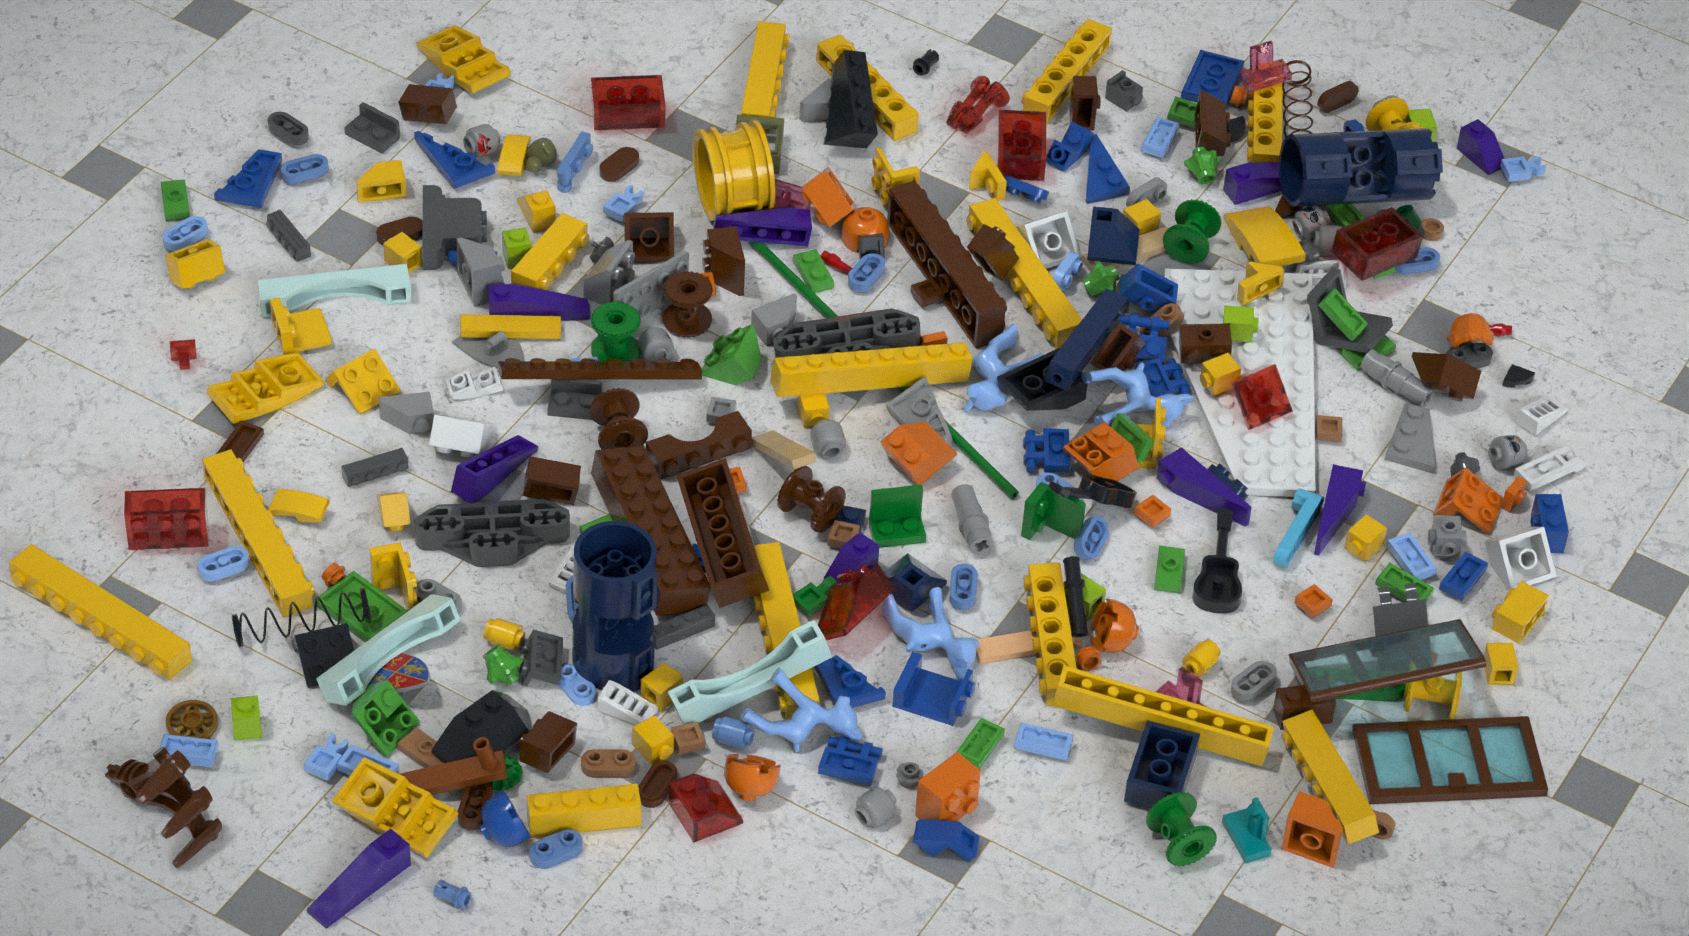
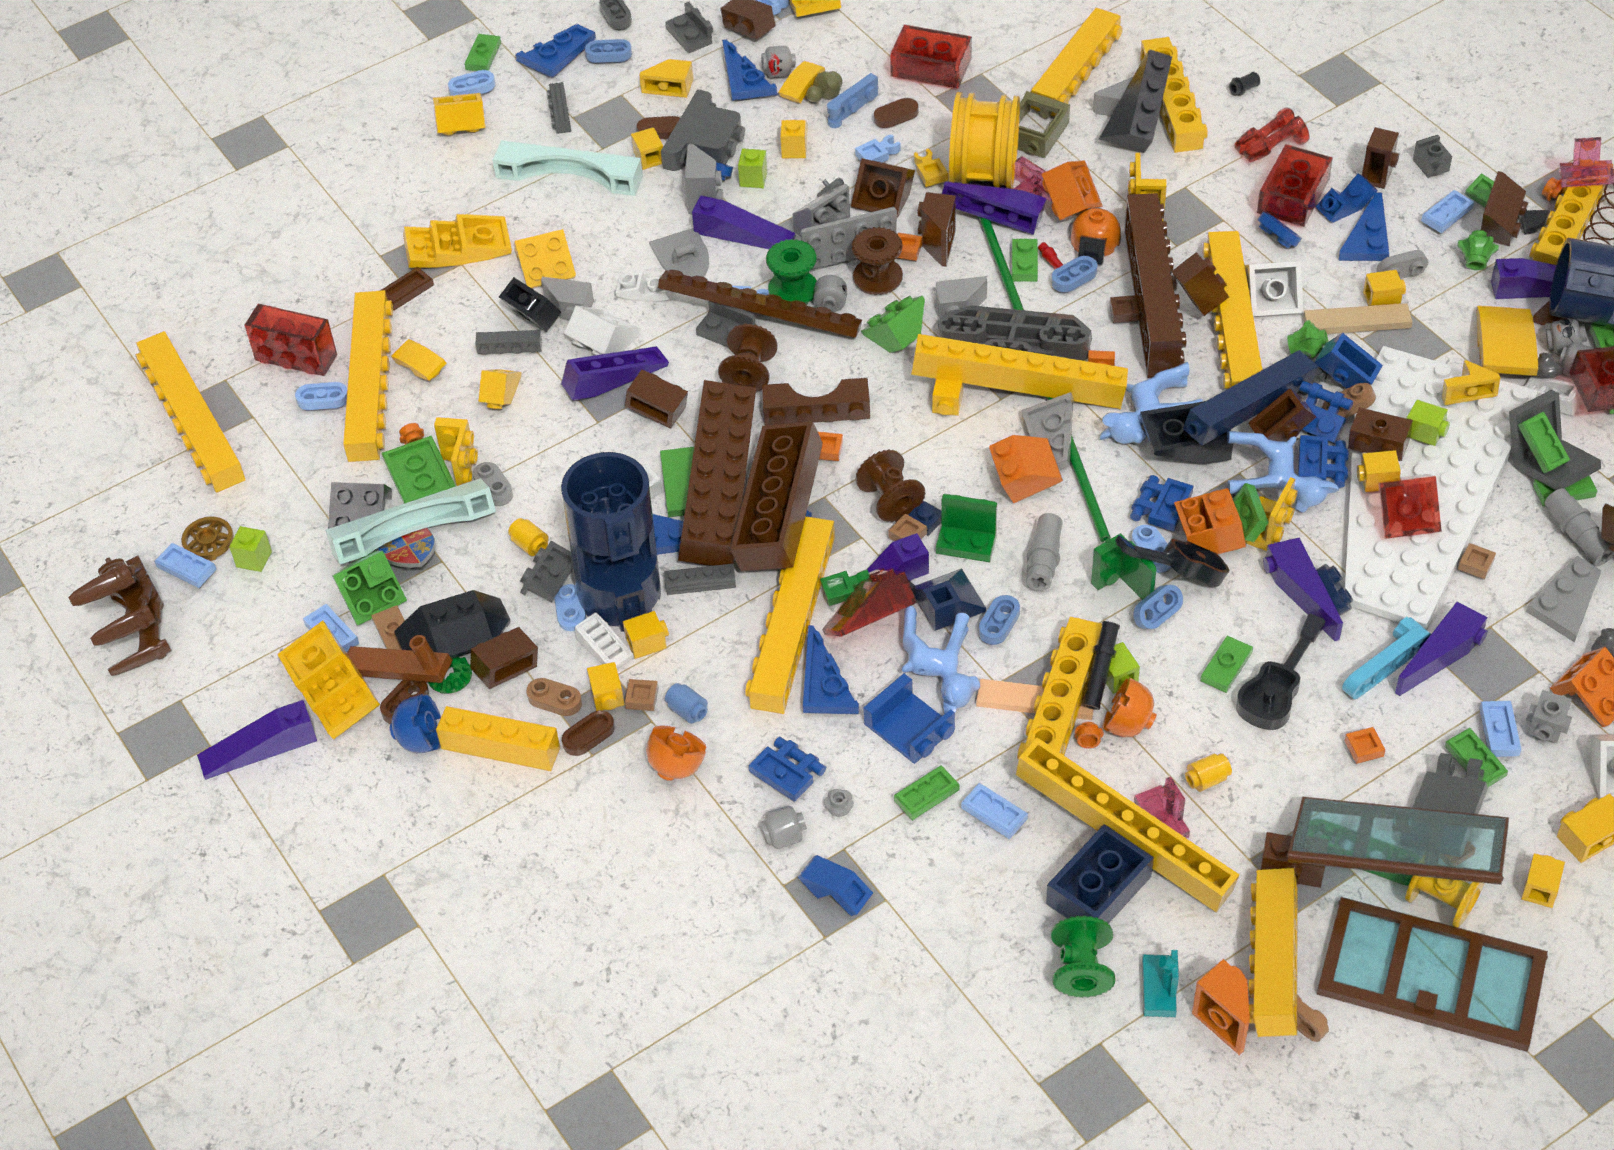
camera: 30 degrees right, 5 degrees up
(183, 352) = (404, 191): clear red tile -> none
(237, 623) = (300, 458): black piece -> none
(300, 329) = (515, 196): yellow bracket -> none
(324, 760) = (294, 610): light blue plate -> none
(380, 426) = (530, 304): none -> black brick
(458, 896) = (336, 788): medium blue pin -> none
(492, 531) = (572, 429): dark grey connector -> none
(502, 665) = (505, 568): bright green rock -> none
(512, 325) = (707, 241): yellow tile -> none
(551, 253) = (780, 181): yellow brick -> none
(557, 848) = (455, 768): medium blue plate -> none
(684, 210) = (929, 170): none -> yellow plate
(702, 806) = (616, 770): clear red slope -> none
(719, 407) = (858, 369): light grey plate -> none
(783, 449) = (887, 428): tan tile -> none
(795, 654) = (779, 640): light aqua arch -> none
(828, 438) = (944, 429): light grey head -> none
(839, 718) = (793, 721): light blue animal -> none
(948, 790) = (858, 835): orange brick -> none
(987, 175) = (1244, 206): yellow slope -> none
(1067, 269) = (1277, 322): light blue plate -> none
(1075, 59) = (1396, 114): yellow brick -> none
(1112, 237) = (1339, 300): dark blue slope -> none
(1152, 511) = (1239, 596): orange plate -> none
(1188, 238) = (1417, 322): green hose -> none
(1214, 75) = (1535, 164): blue tile -> none
(1248, 683) = (1251, 813): light grey plate -> none
(1365, 537) = (1457, 692): yellow brick -> none
(1463, 576) = (1549, 767): blue plate -> none

